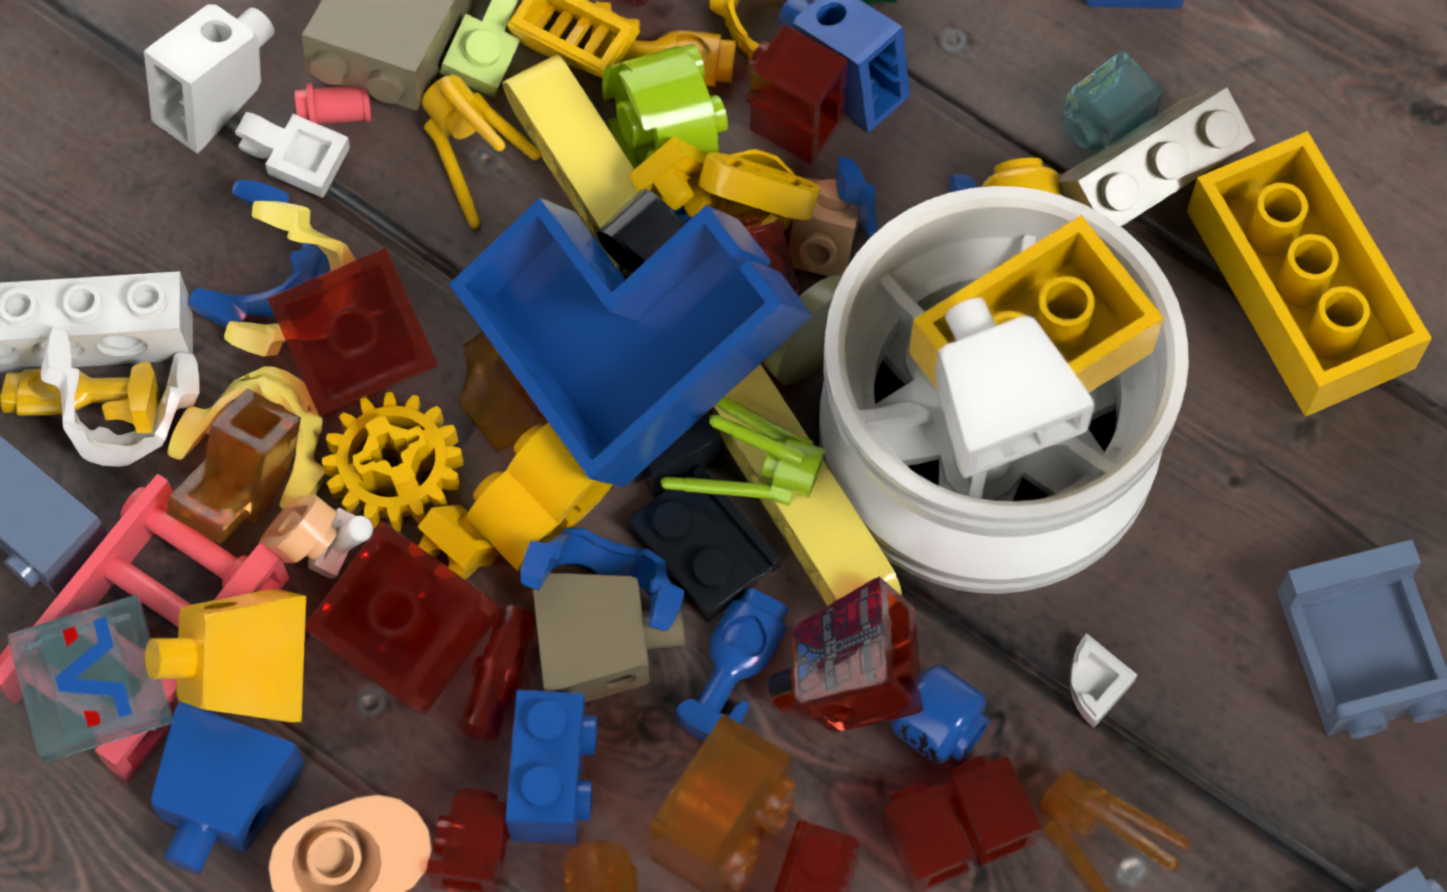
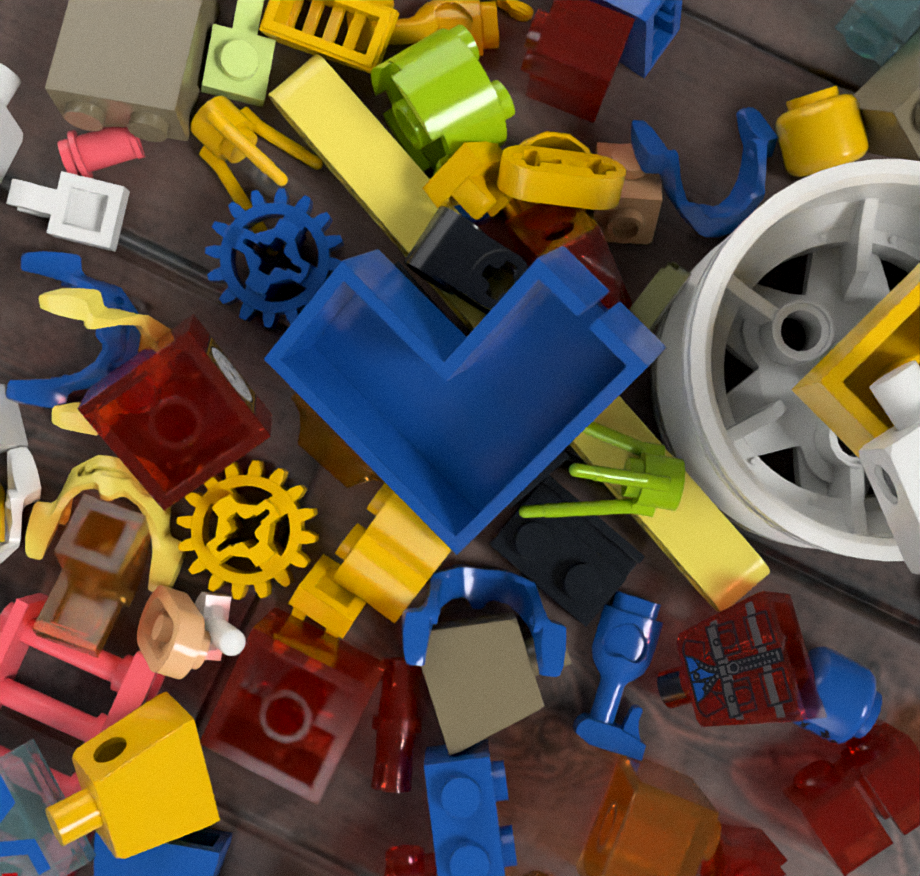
camera: 10 degrees left, 20 degrees up
(461, 198) = (288, 231): none -> blue gear

